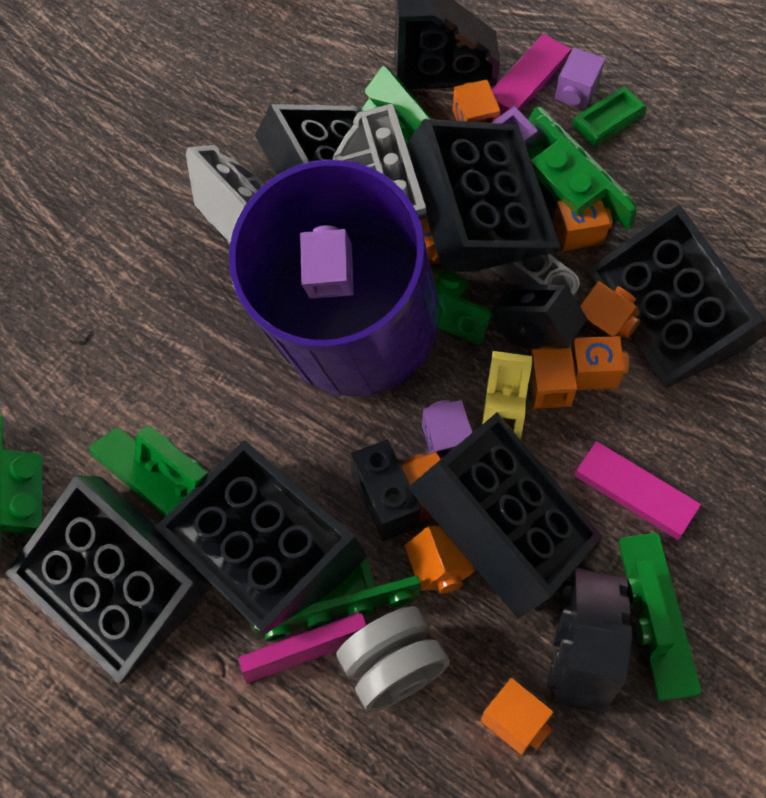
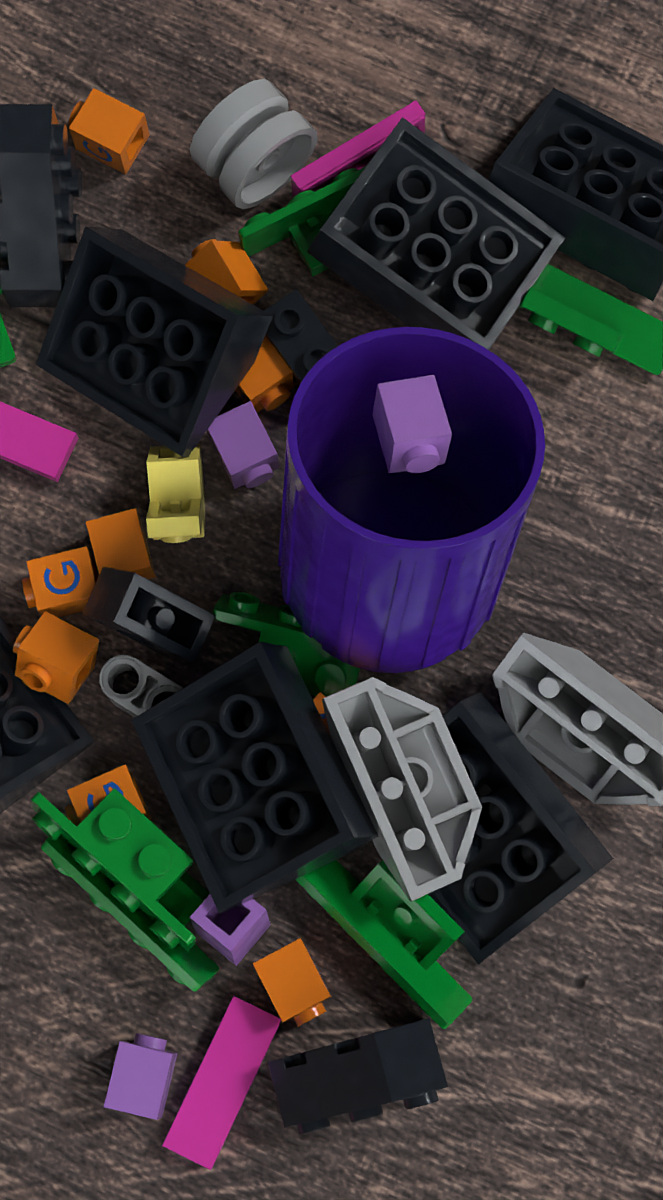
camera: 175 degrees right, 15 degrees up
(609, 116) = (88, 1028): green tile -> none

